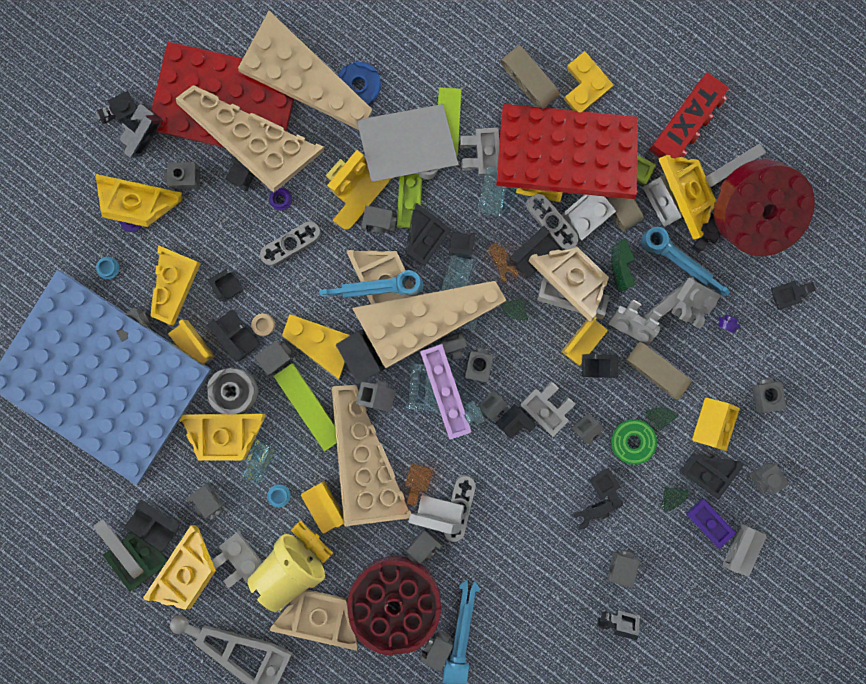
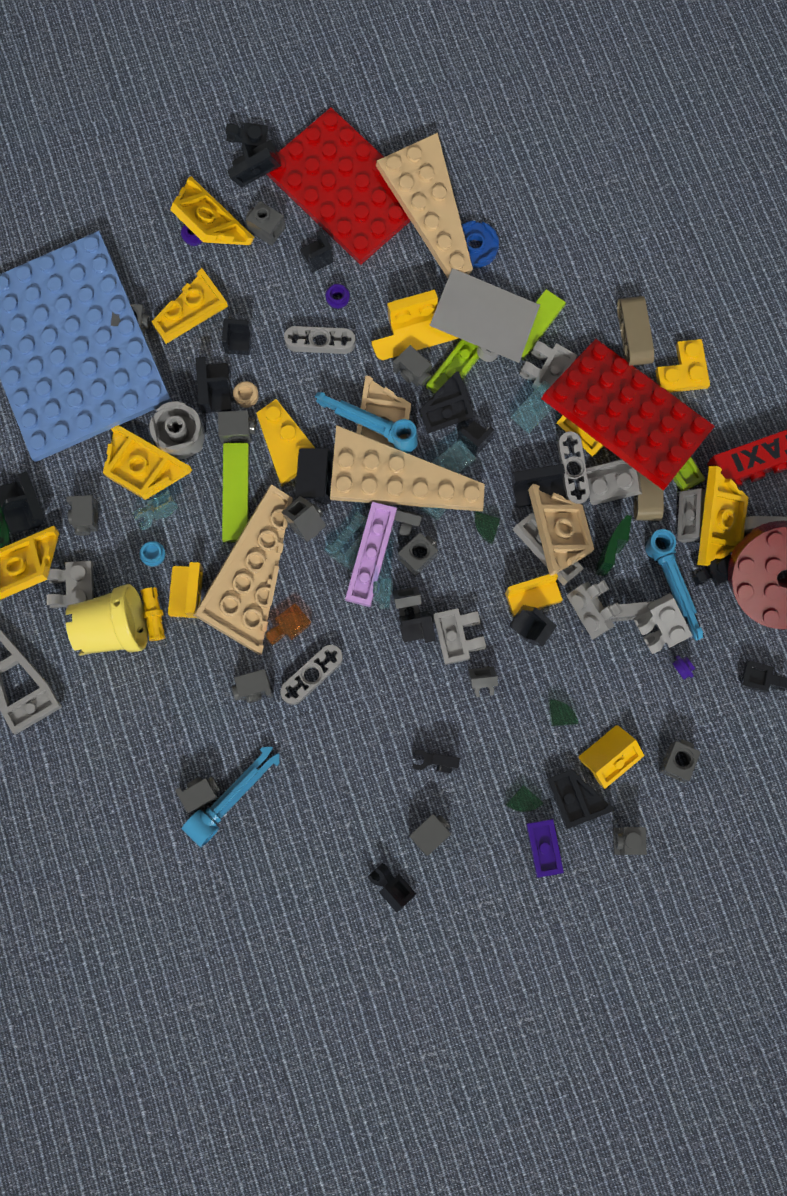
camera: 30 degrees right, 10 degrees down
(107, 268) = (143, 259): dark azure plate -> none
(190, 342) = (171, 367): yellow panel -> none
(256, 142) = (348, 229): tan wing -> none
(318, 619) = (109, 690): tan wing -> none
(388, 629) = (160, 715): dark red brick -> none
(438, 515) = (287, 665): light grey panel -> none
(498, 256) = (503, 468): clear orange plate -> none
(606, 485) = (465, 743): black plate -> none
(646, 446) = (519, 736): green tile -> none
(658, 370) = (587, 668): dark tan beam -> none
(744, 550) = (562, 899): light grey panel -> none

